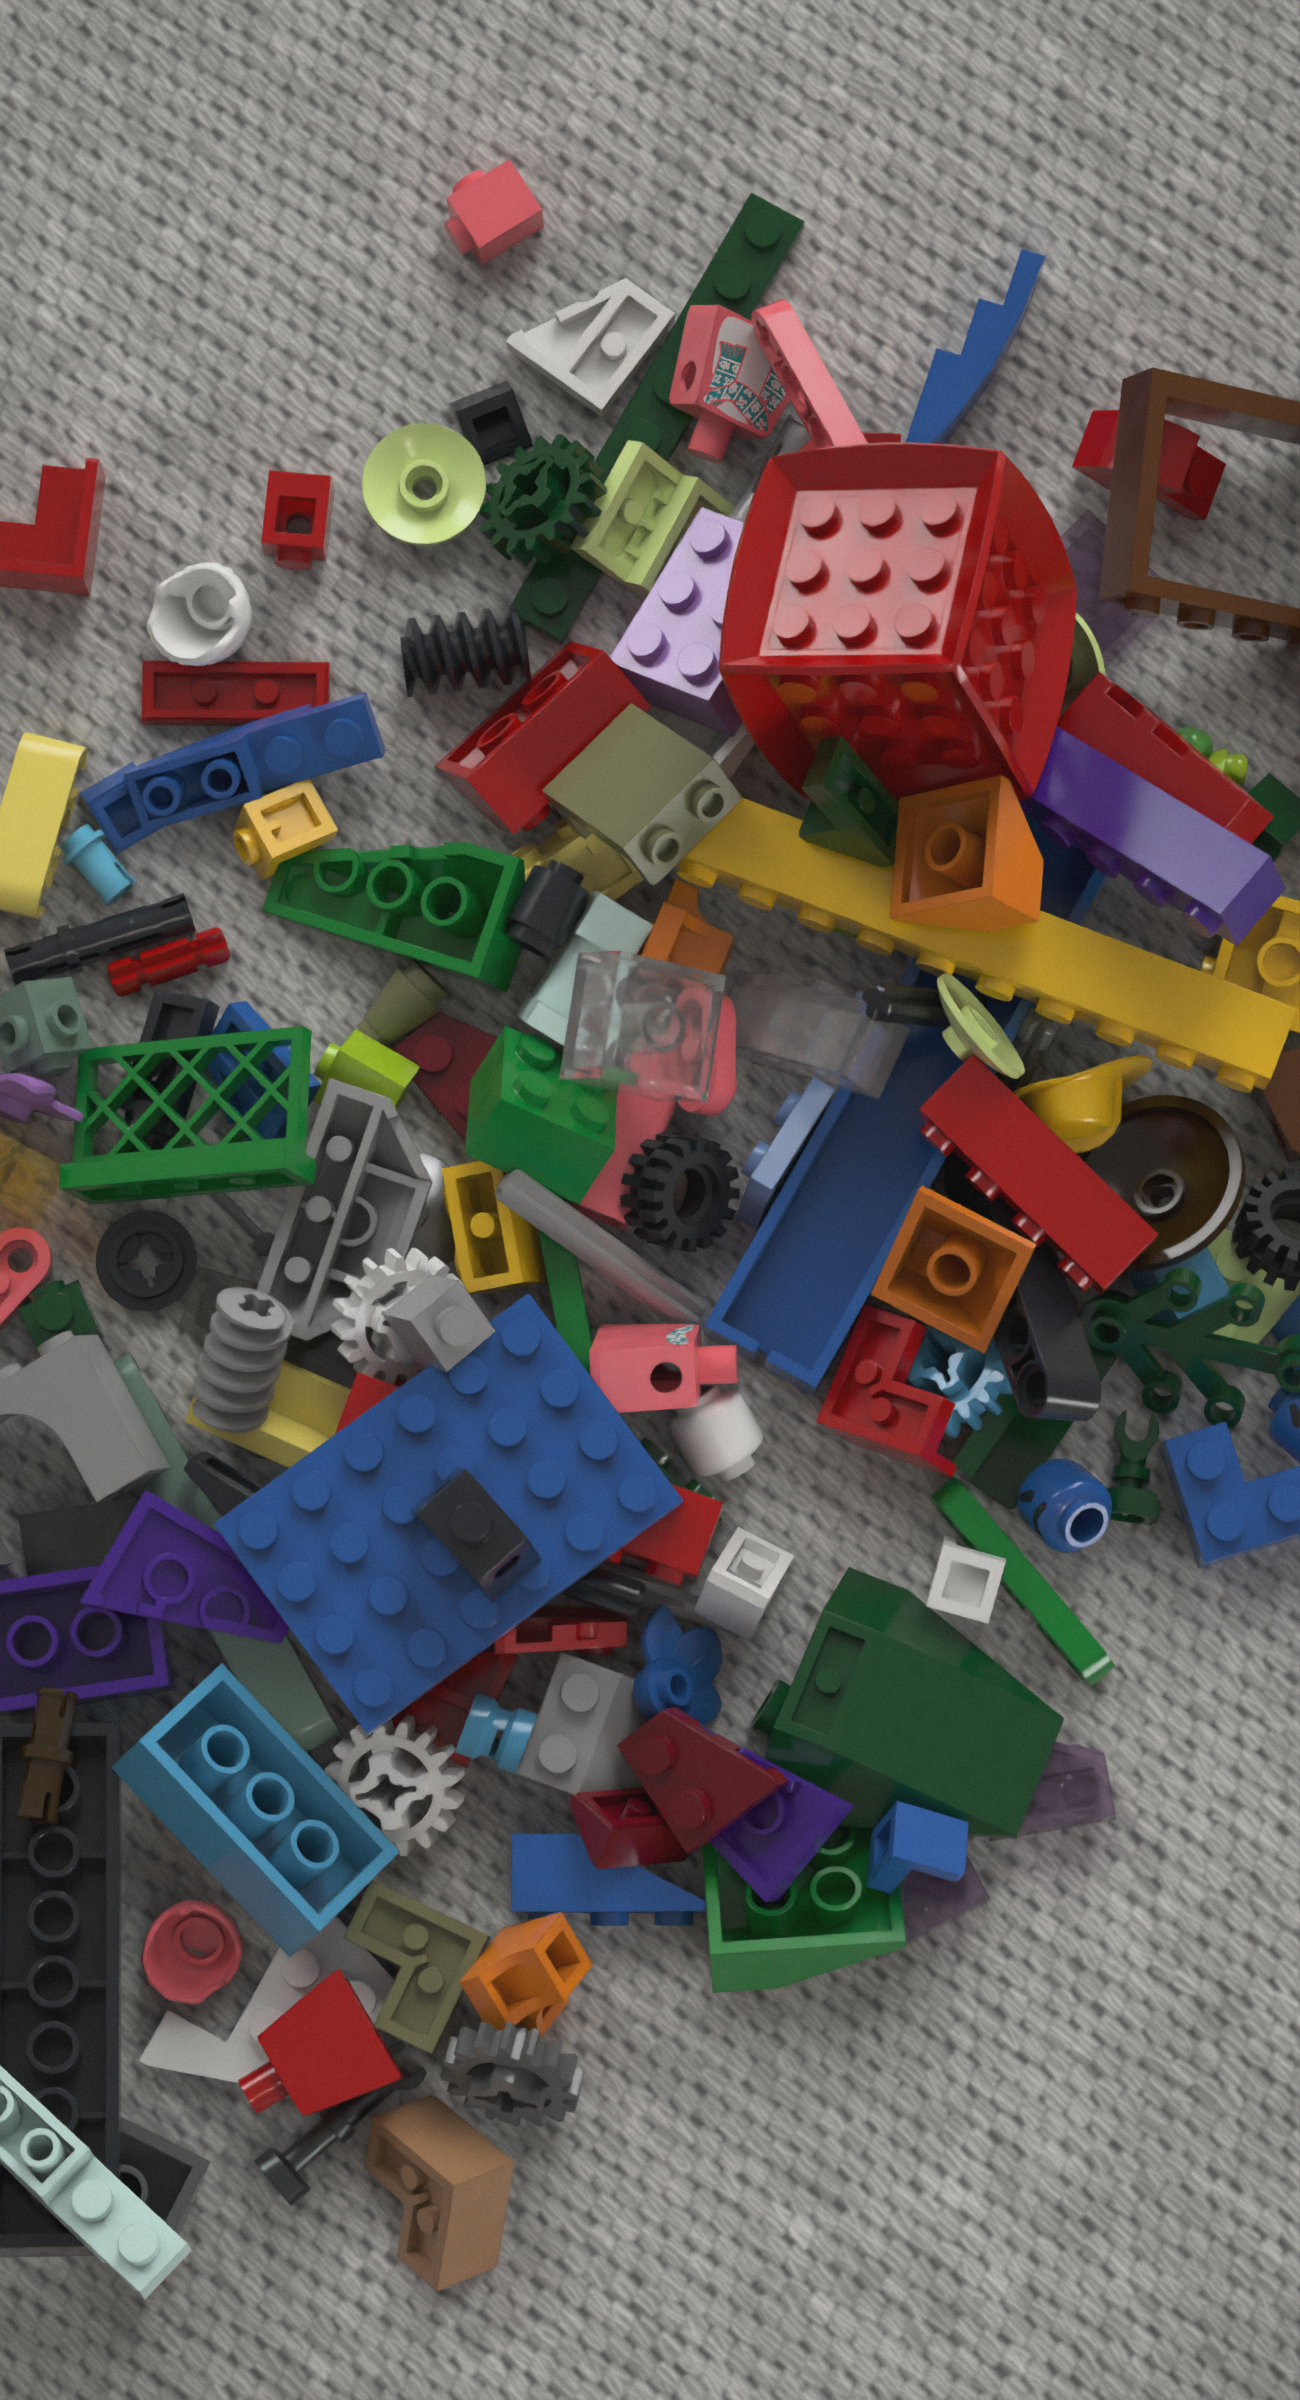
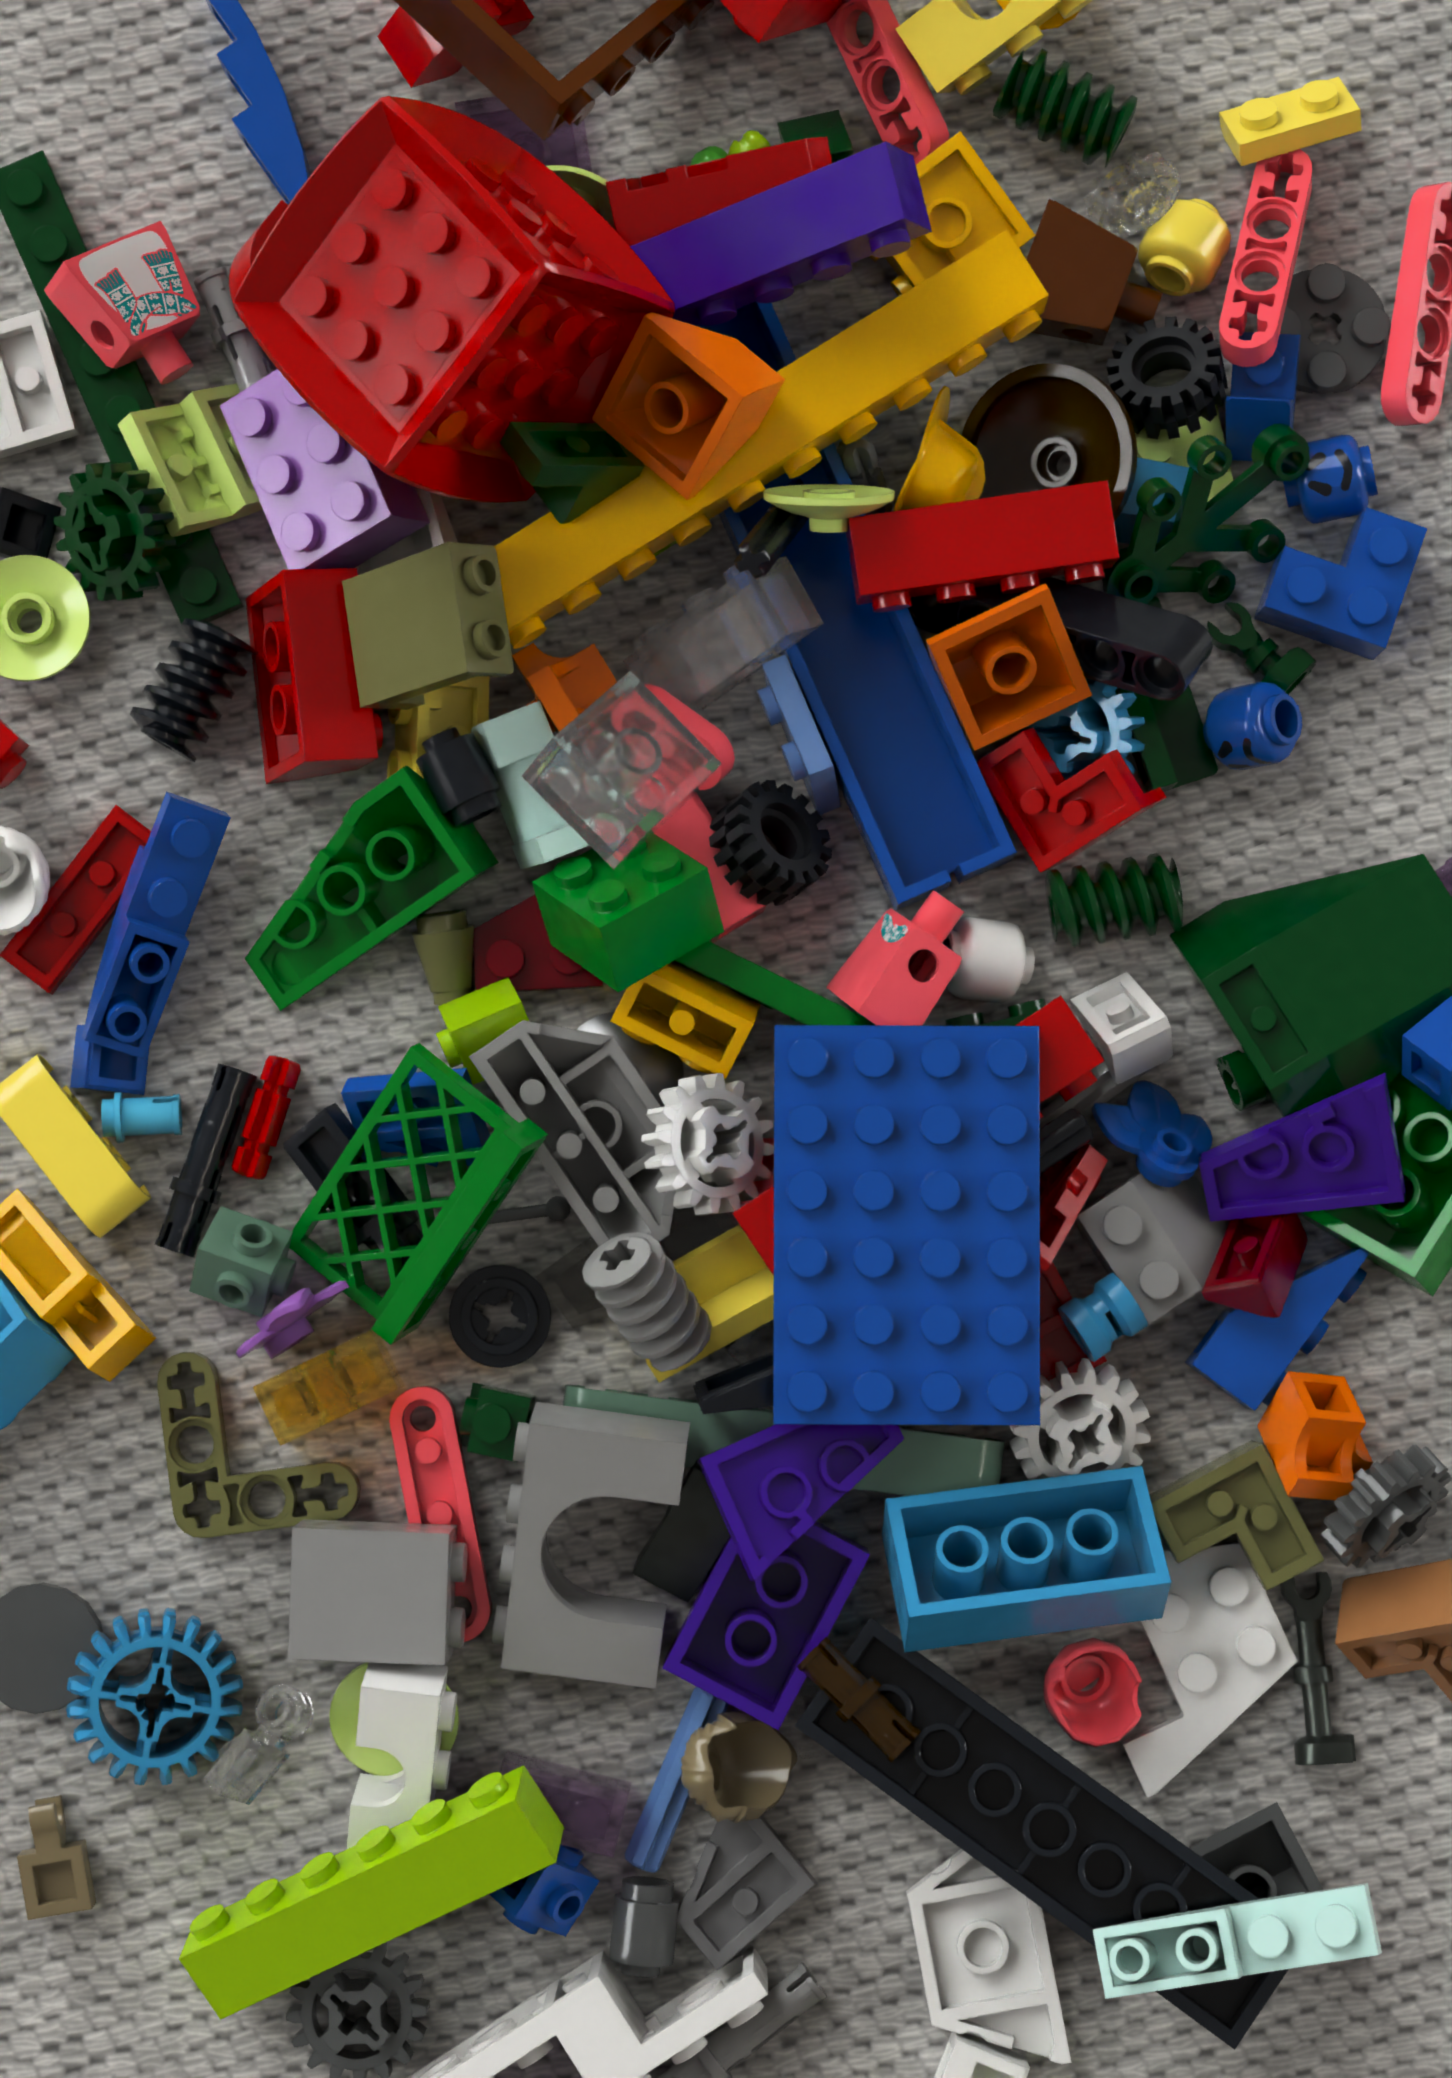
camera: 50 degrees left, 5 degrees up
(282, 827) = (225, 943): yellow bracket -> none
(321, 2052) = (1258, 1648): red torso -> none
(439, 1322) = (744, 1116): light grey brick -> none
(476, 1533) = (945, 1215): black torso -> none
(599, 1249) = (769, 943): light grey axle -> none
(695, 1776) = (1260, 1182): dark red wing -> none
(804, 376) = (178, 236): coral beam -> none
(841, 1501) = (1114, 899): none -> dark green piece
(965, 1581) = (1255, 851): white panel -> none
(1023, 1582) = (1284, 805): green beam -> none

